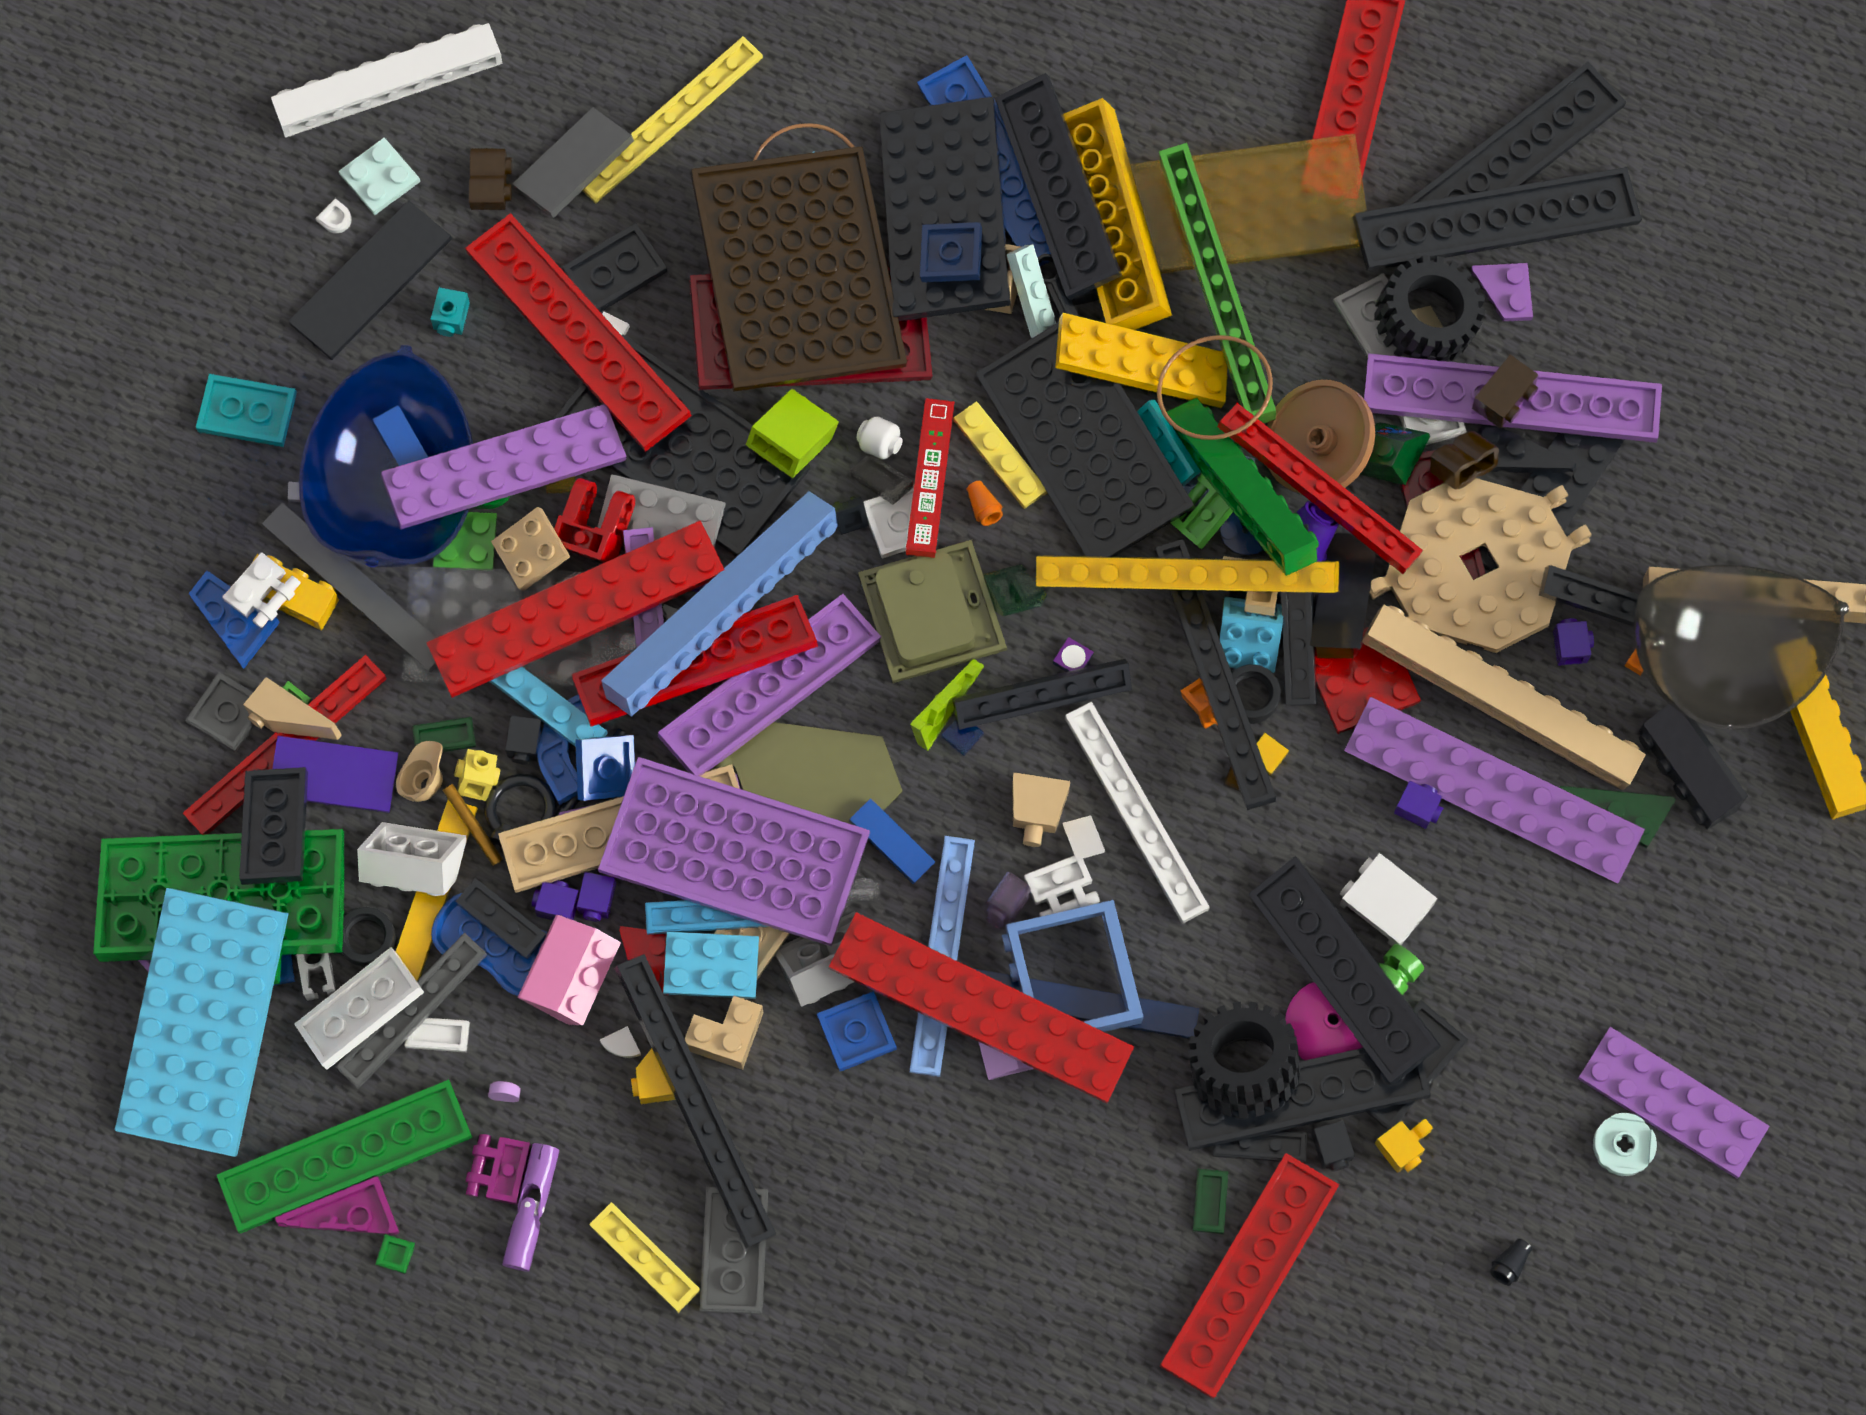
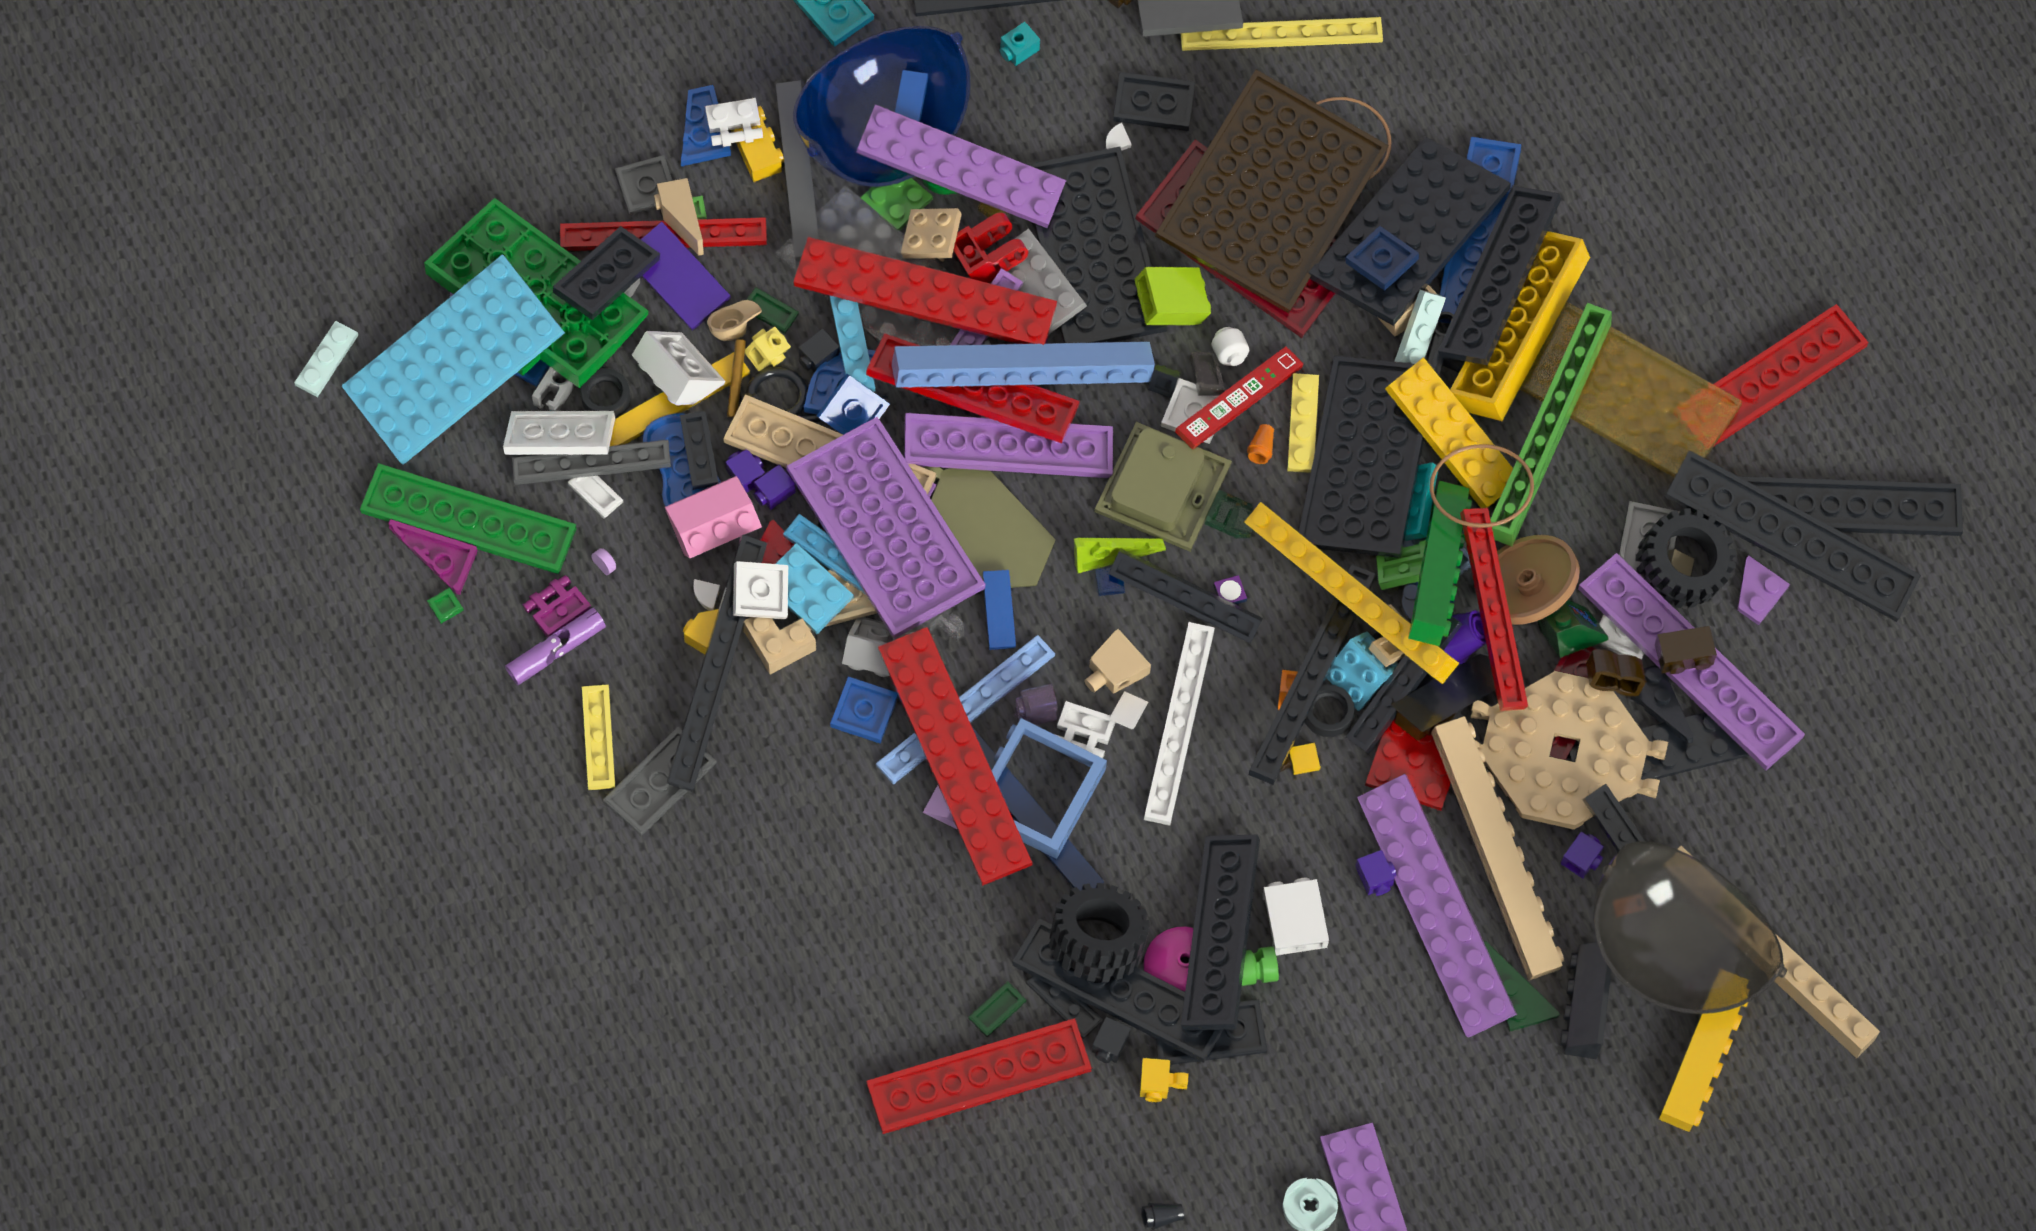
camera: 40 degrees right, 5 degrees down
(76, 1117) = (326, 359): none -> light aqua plate
(578, 332) = (1090, 121): red plate -> none
(678, 1002) = (760, 590): none -> white plate

